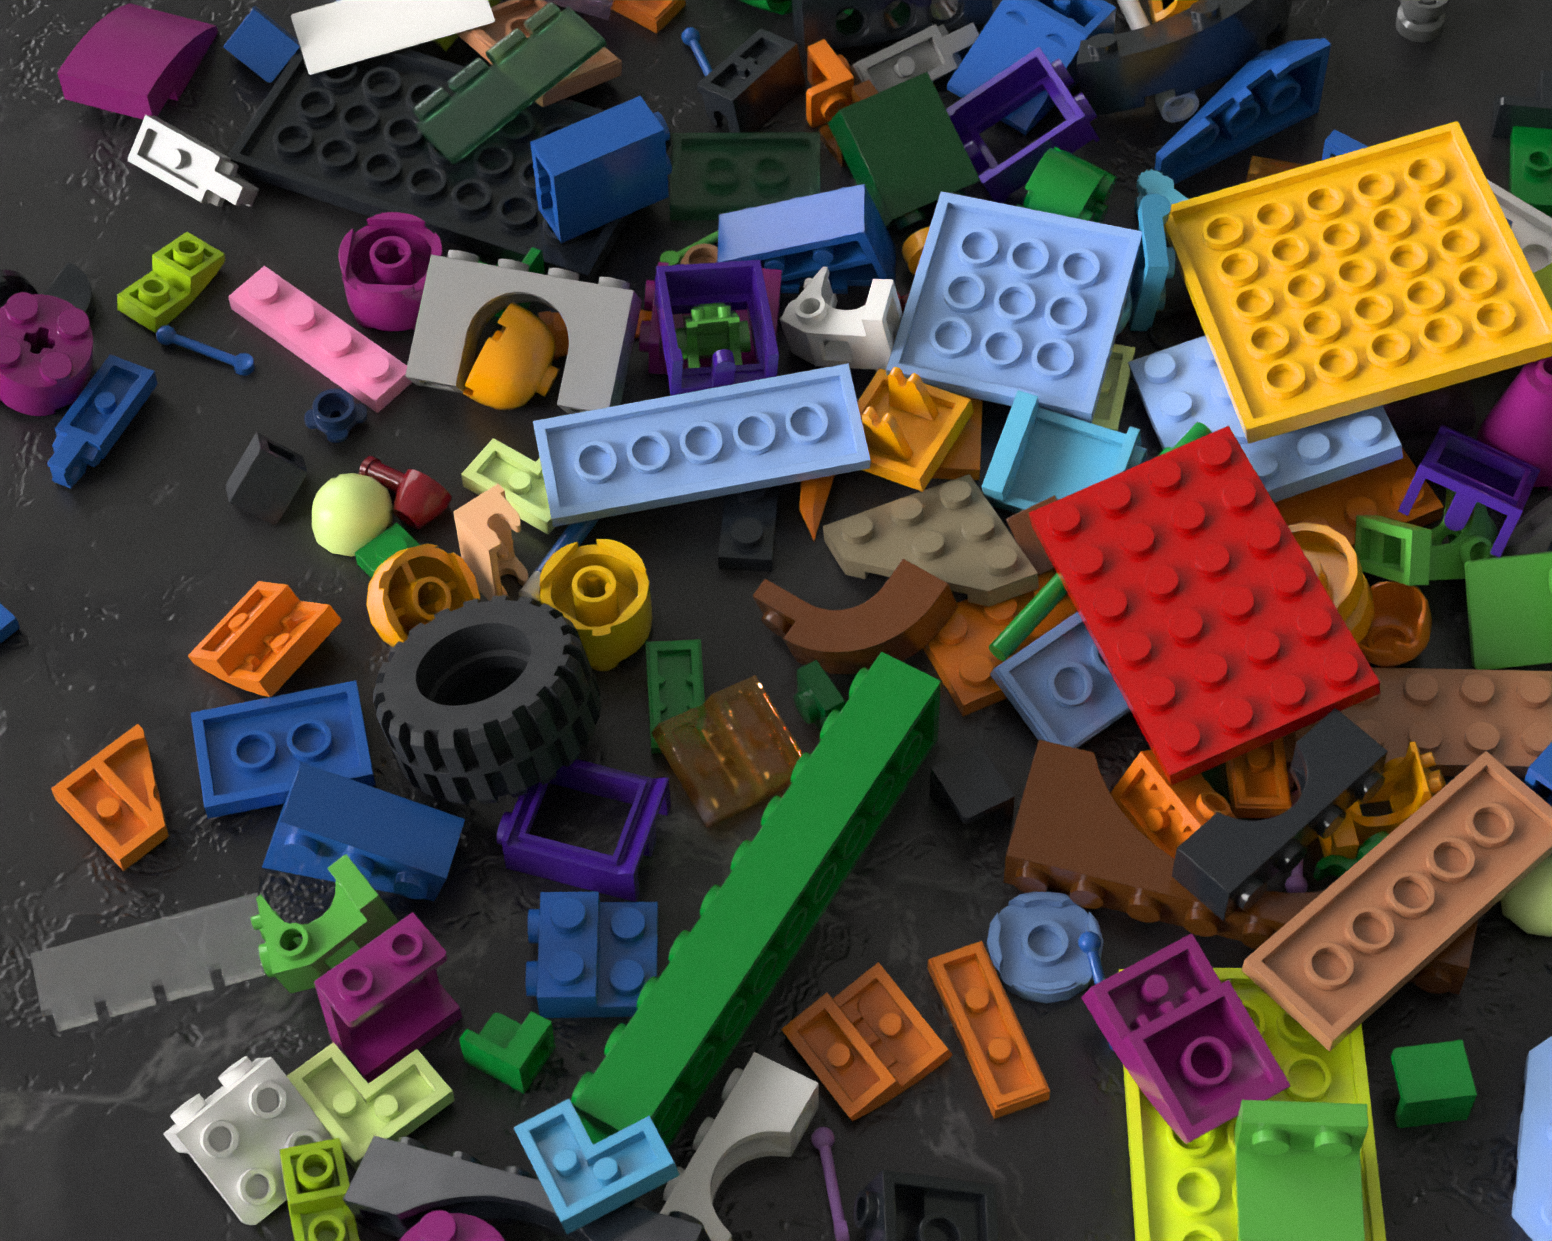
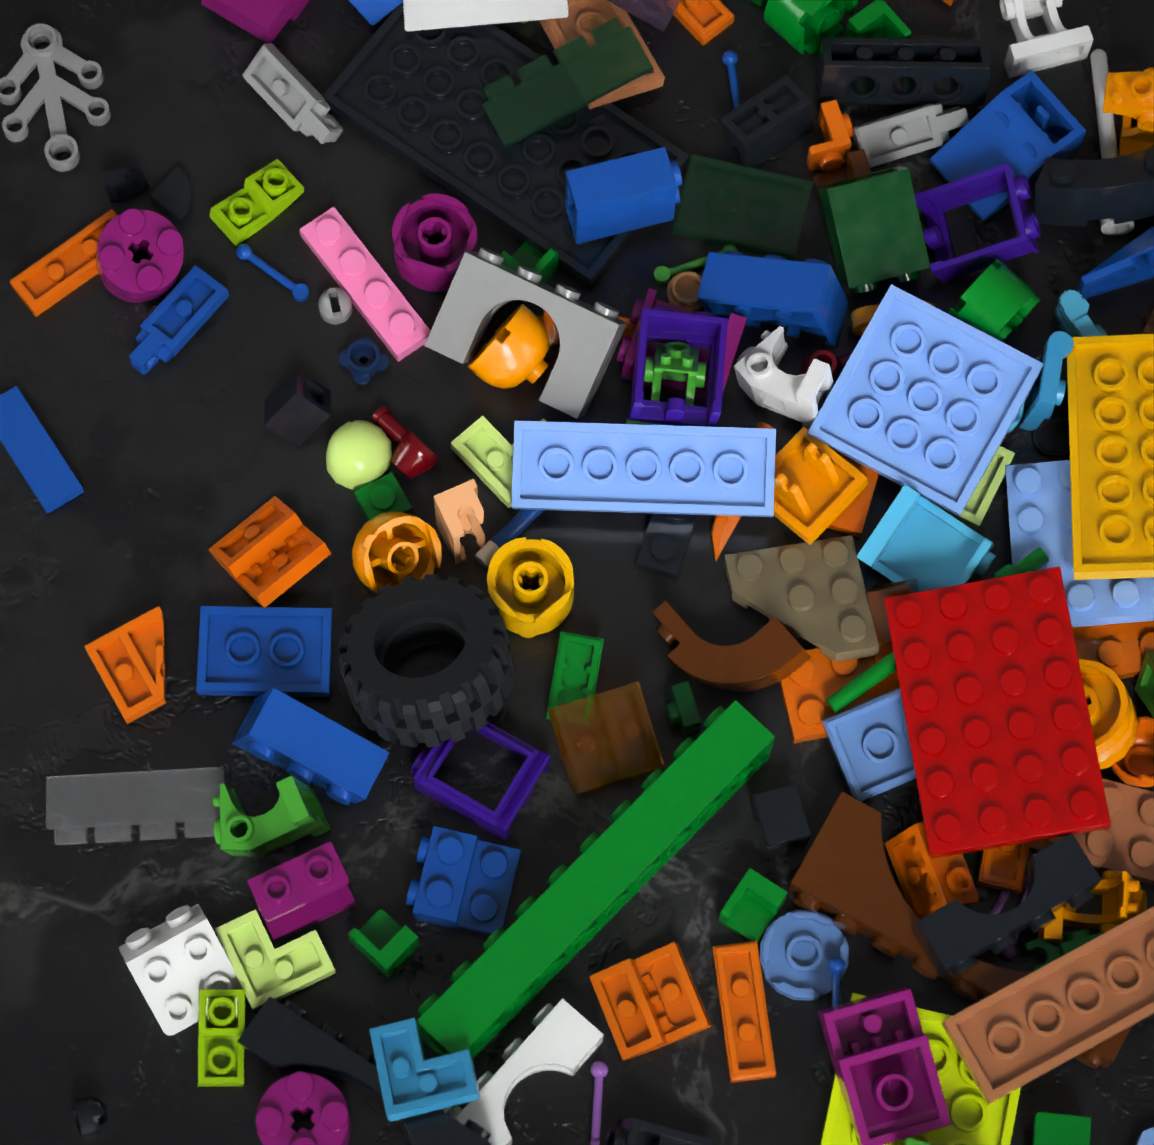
camera: 10 degrees right, 15 degrees up
(277, 370) = (325, 308): none -> light grey hinge
(965, 899) = (752, 906): none -> green panel

